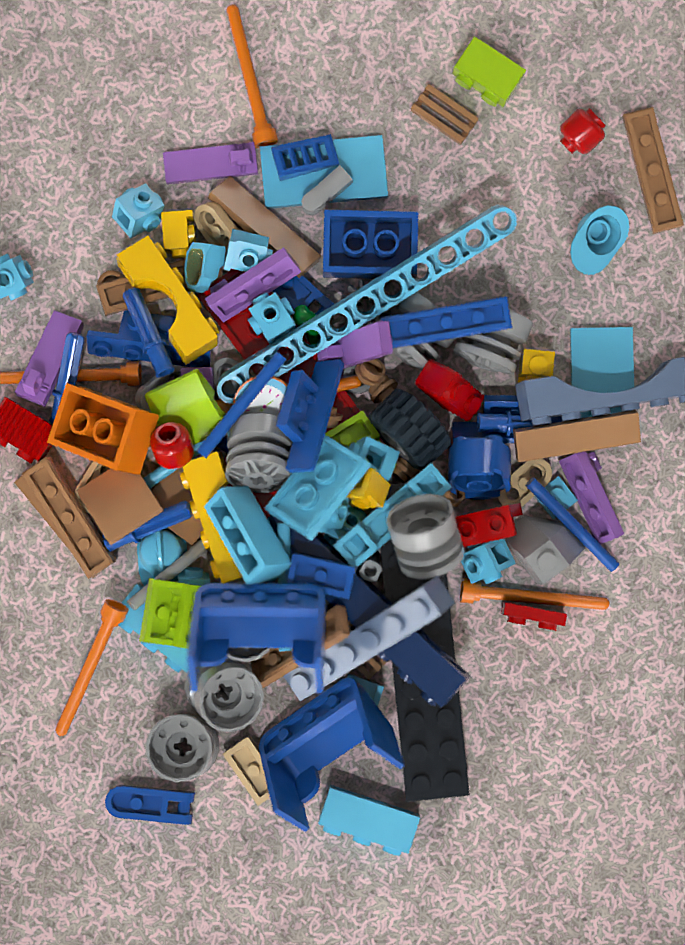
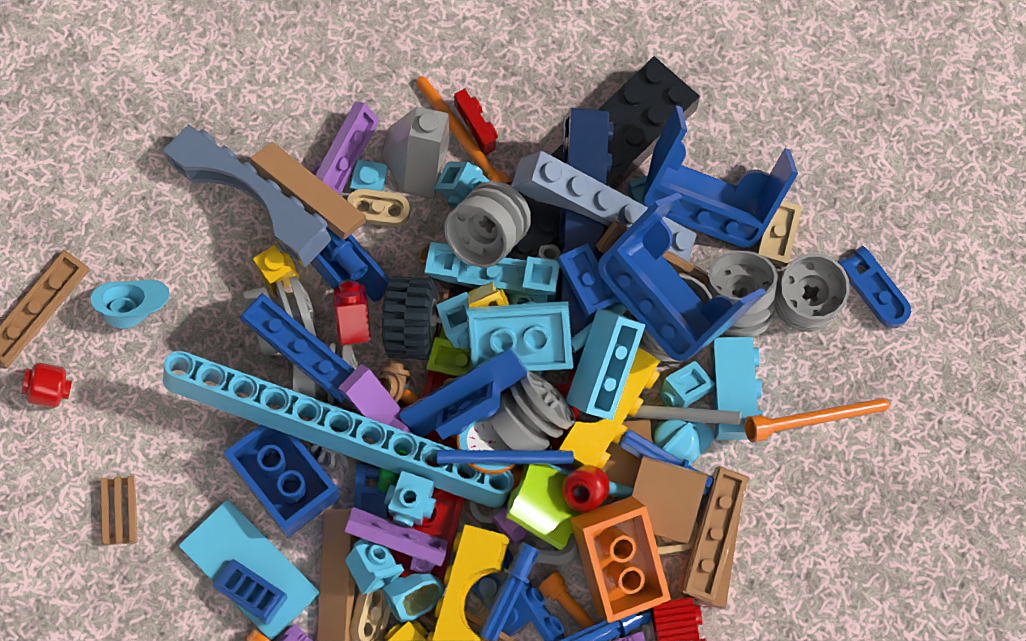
camera: 135 degrees left, 15 degrees down
(168, 613) = (715, 378): lime slope -> none
(326, 191) = (265, 548): light grey bar -> none
(368, 820) = (737, 118): medium azure brick -> none
(479, 467) = (394, 243): blue brick -> none
(488, 73) = (54, 500): lime brick -> none
(488, 524) = (430, 200): red bracket -> none
(572, 524) = (380, 146): blue bar -> none
(602, 360) = (230, 226): medium azure tile -> none

